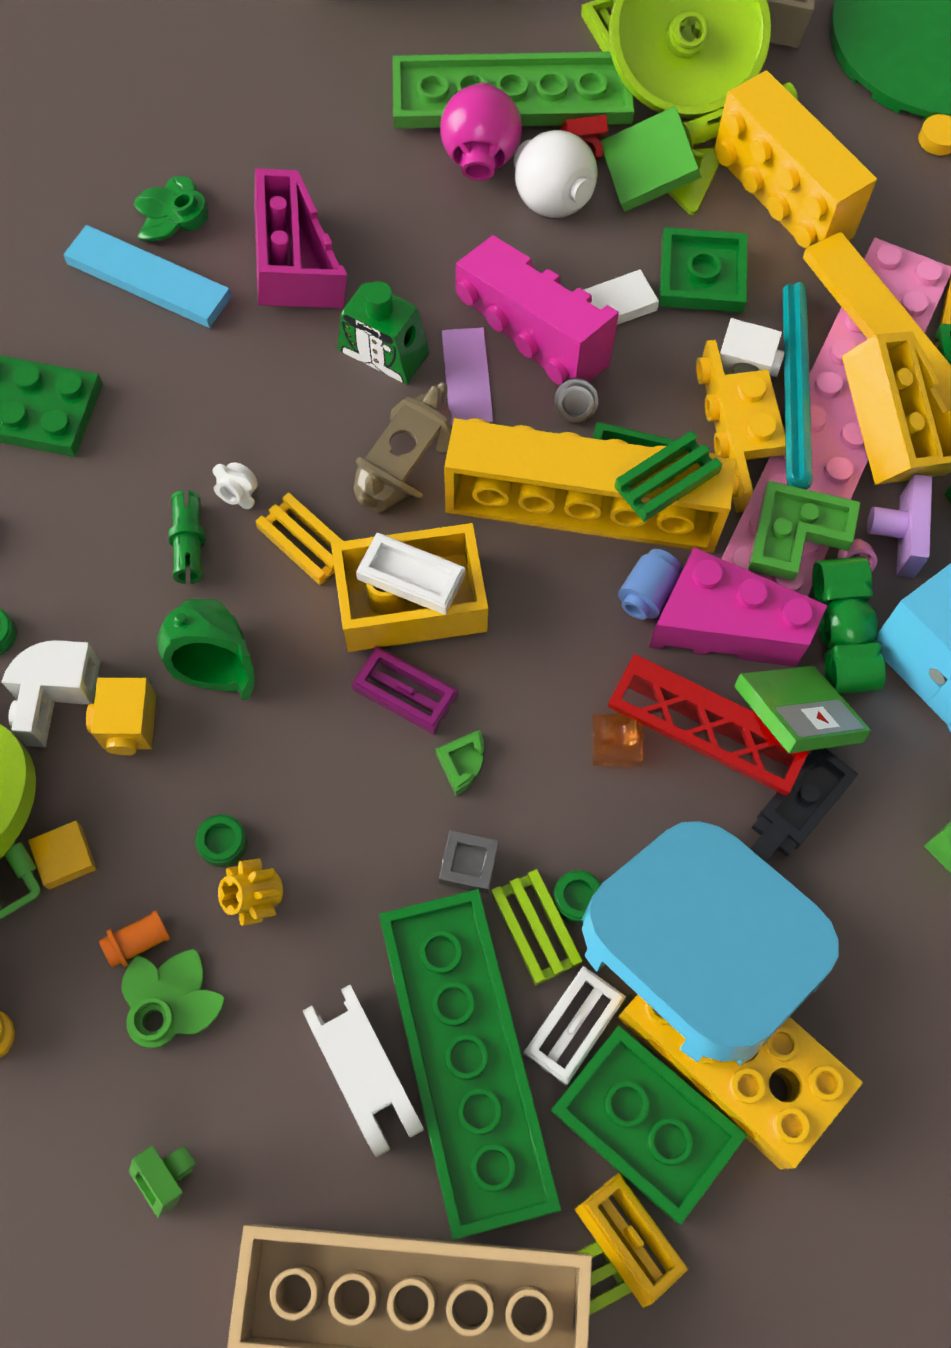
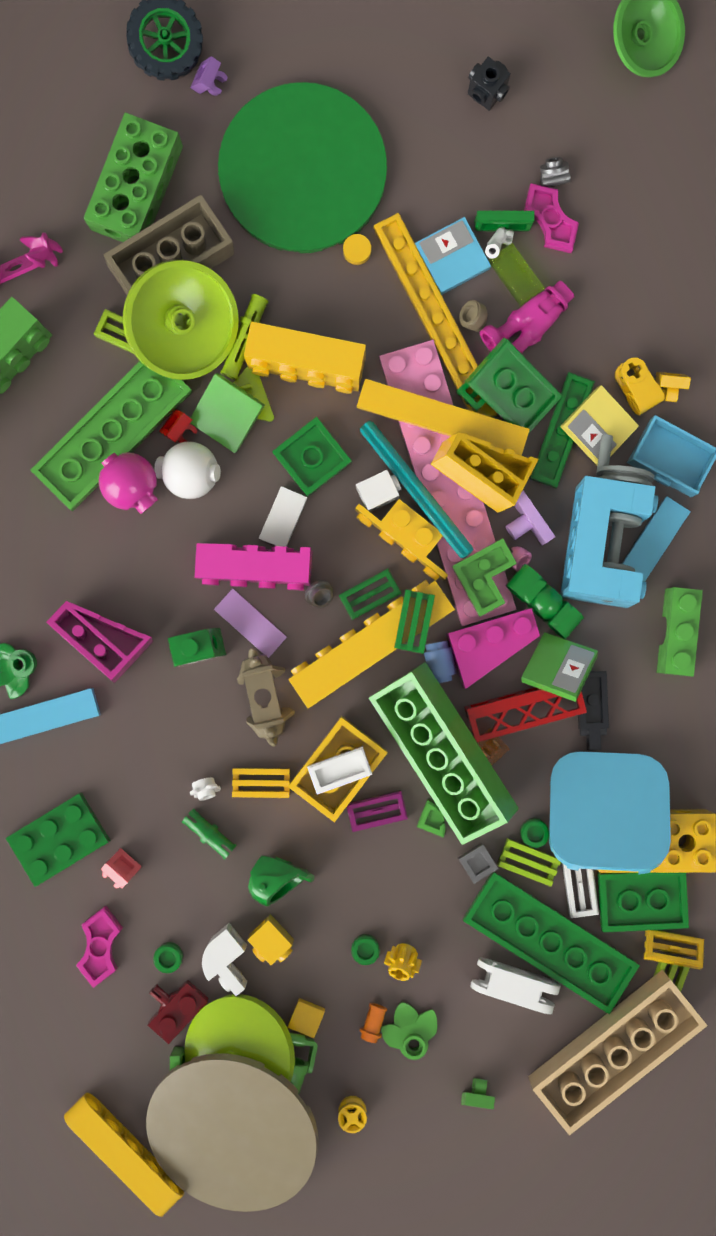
camera: 45 degrees left, 20 degrees up
(51, 484) = (120, 868): none -> coral tile
(555, 681) = (444, 754): none -> bright green brick

